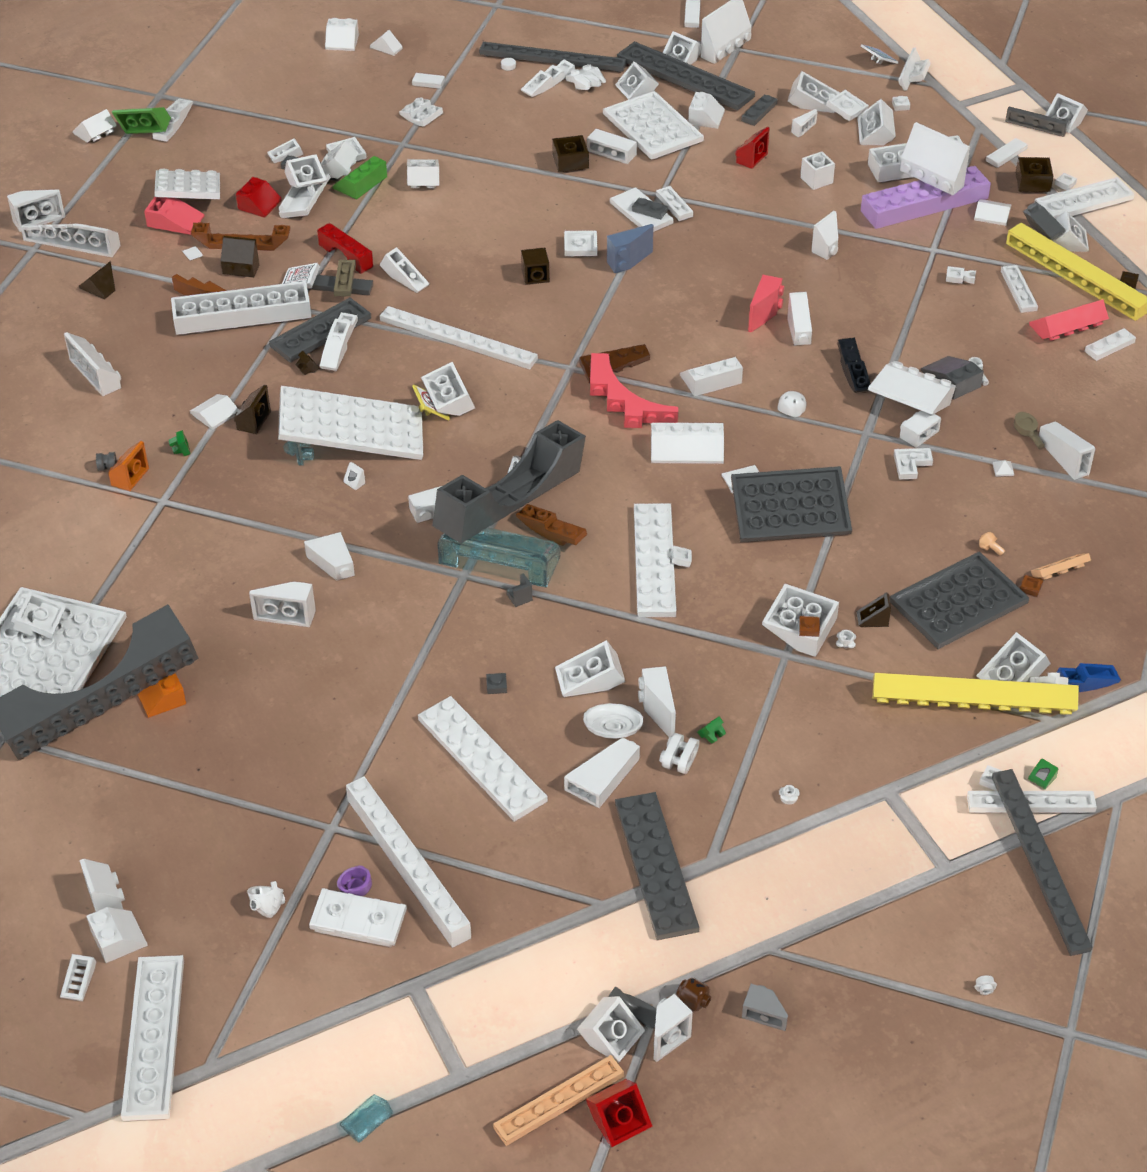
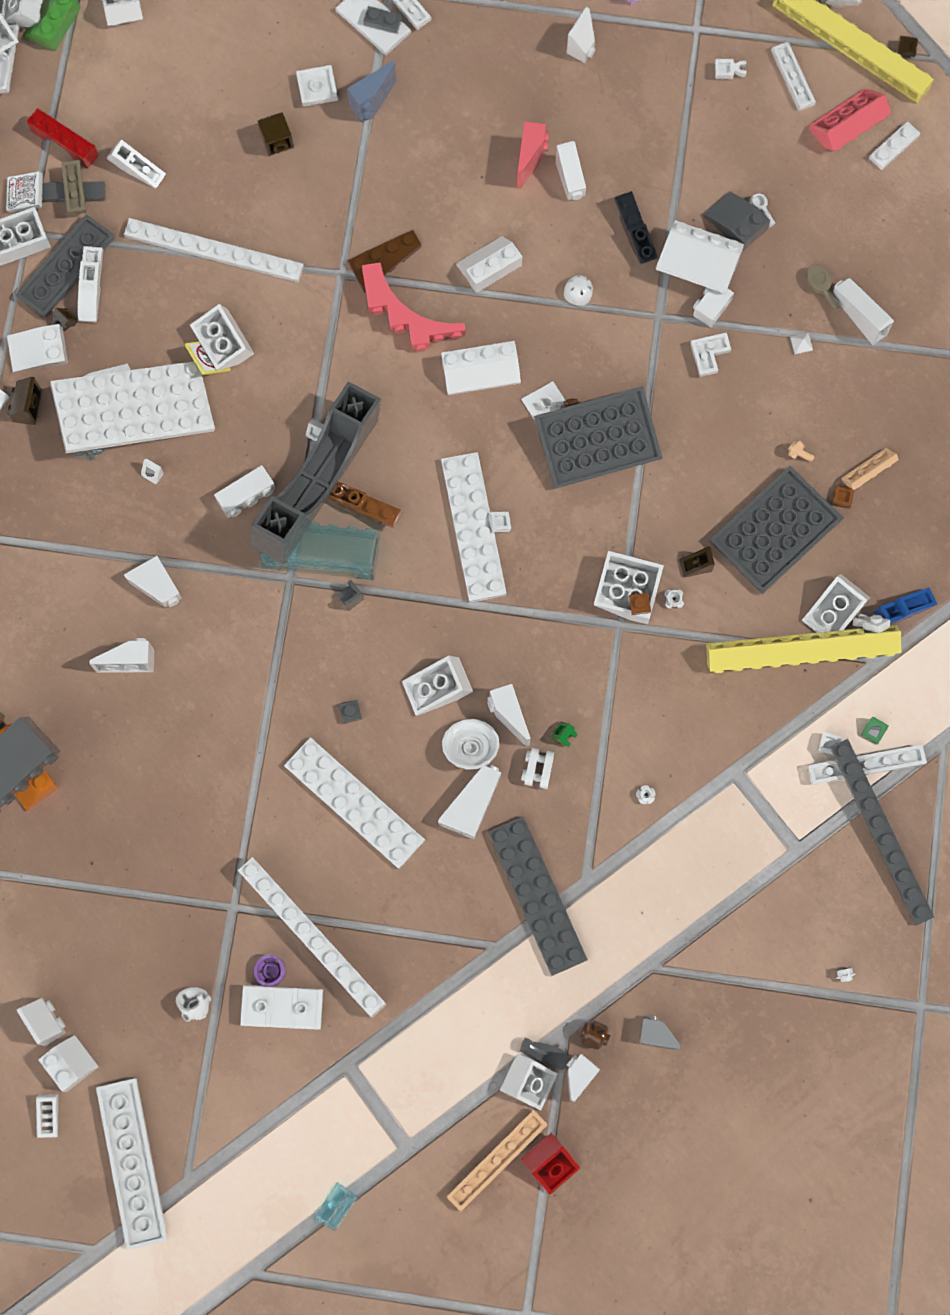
camera: 10 degrees left, 30 degrees up
(276, 373) = (37, 348): none -> white slope

